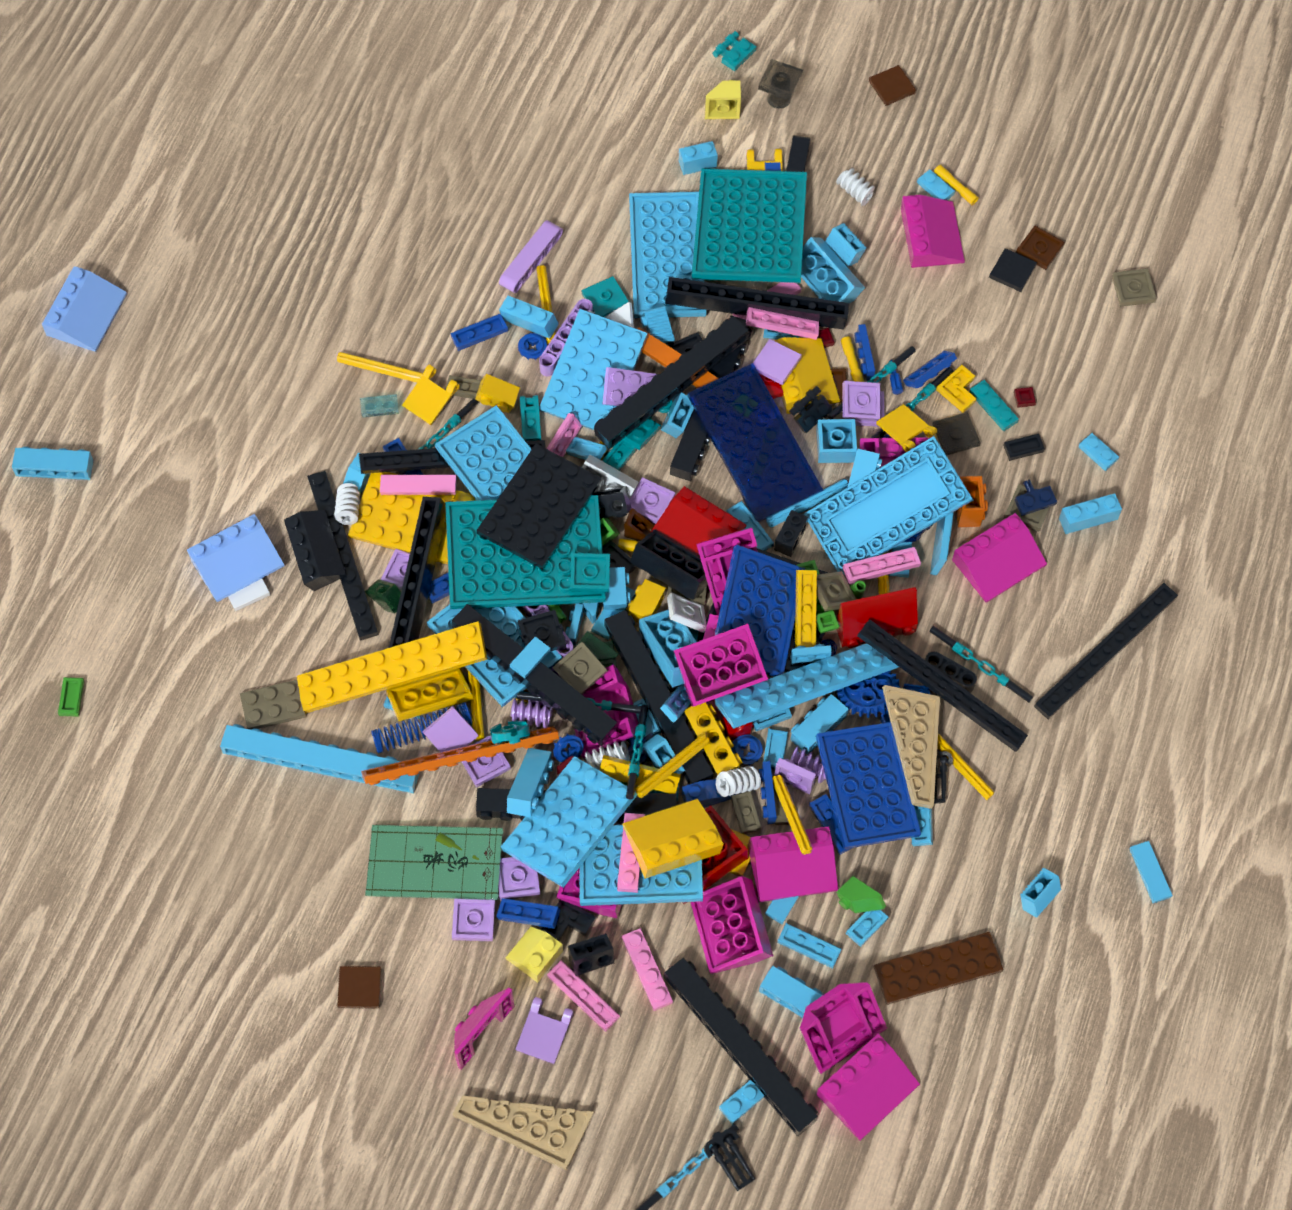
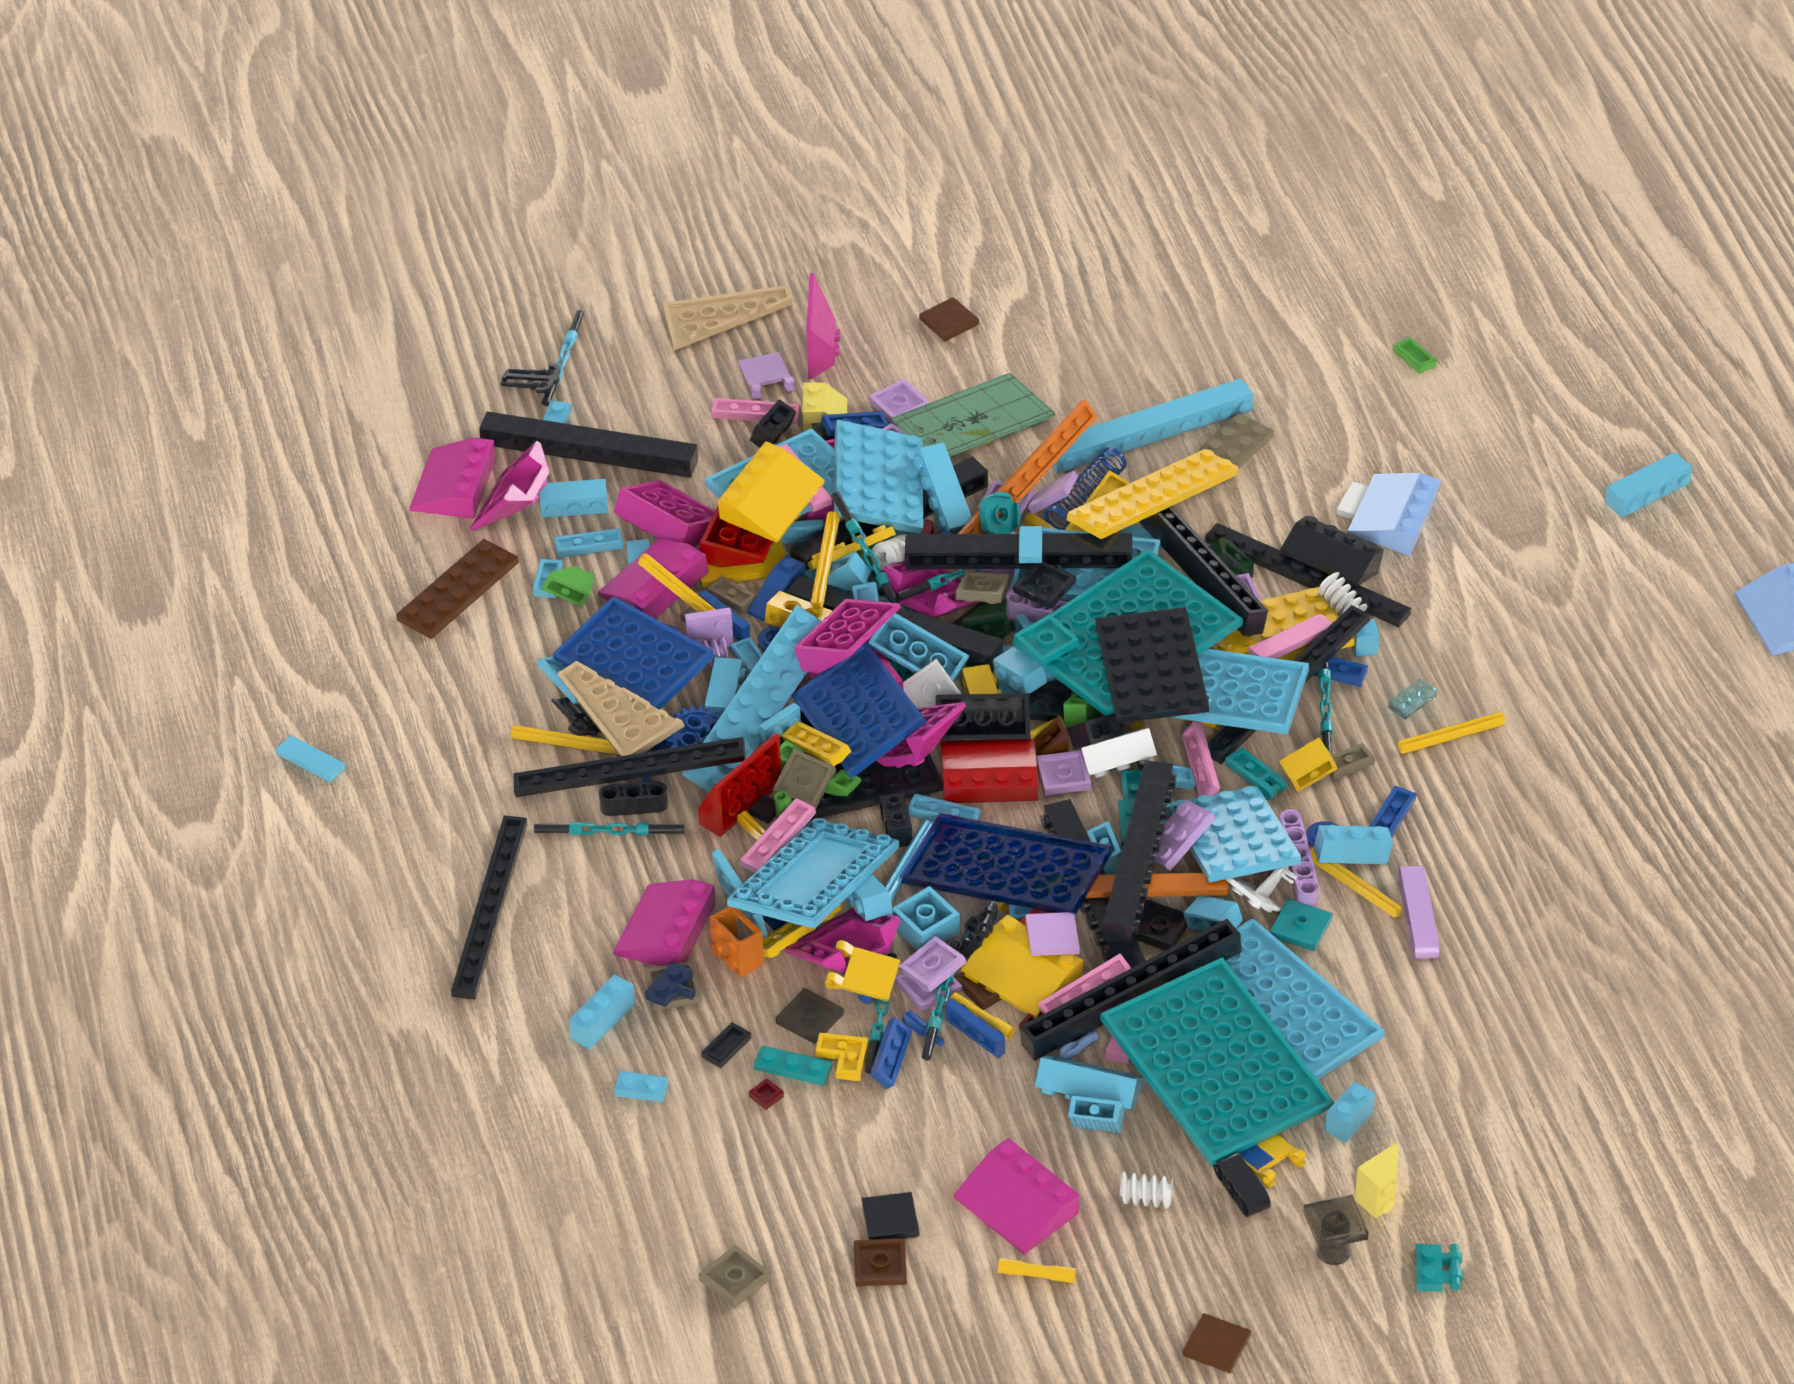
camera: 145 degrees right, 20 degrees down
(428, 398) = (1373, 730): yellow flag -> none
(647, 969) = (713, 451): bright pink plate -> none
(738, 781) = (756, 598): white piece -> none
(935, 186) = (1059, 1254): medium azure plate -> none
(1040, 892) = (404, 675): medium azure brick -> none

